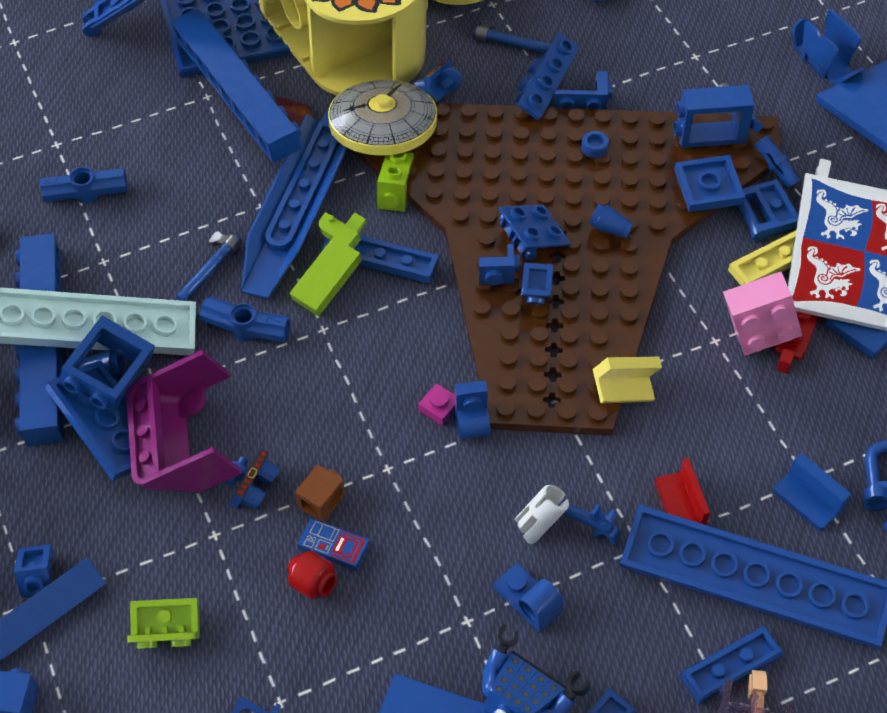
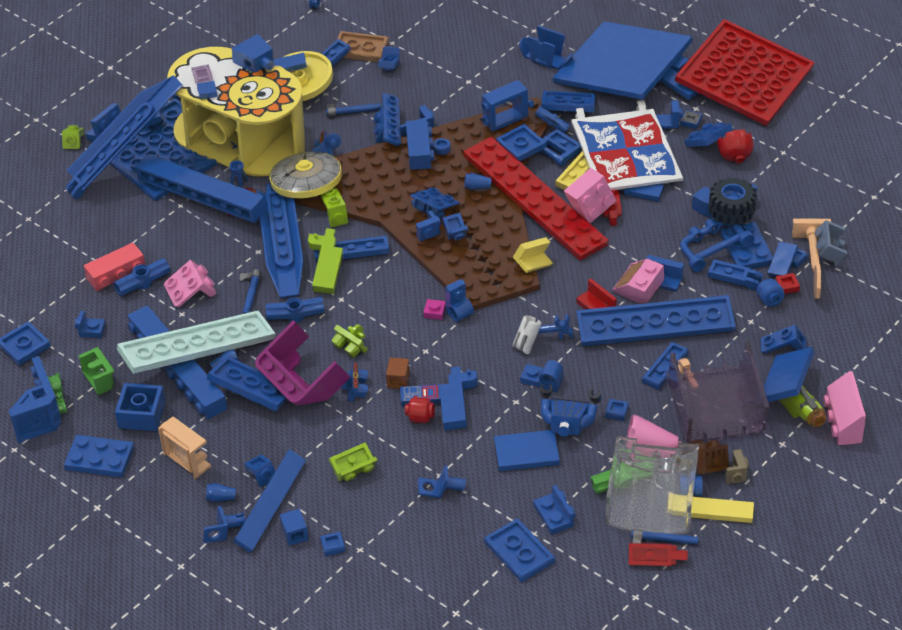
camera: 25 degrees left, 10 degrees down
(59, 154) = (113, 266): none -> coral brick
(121, 342) = (241, 340): blue window -> none
(138, 215) = (187, 282): none -> bright pink bracket
(291, 402) = (352, 337): none -> lime hips
(301, 72) = (236, 168): none -> blue piece
(374, 575) = (453, 398): none -> blue piece
(562, 130) = (419, 144): none -> blue brick
(686, 285) = (536, 198): none -> red plate
(768, 492) = (640, 281): none -> bright pink slope
(818, 141) = (568, 101): none -> blue tile

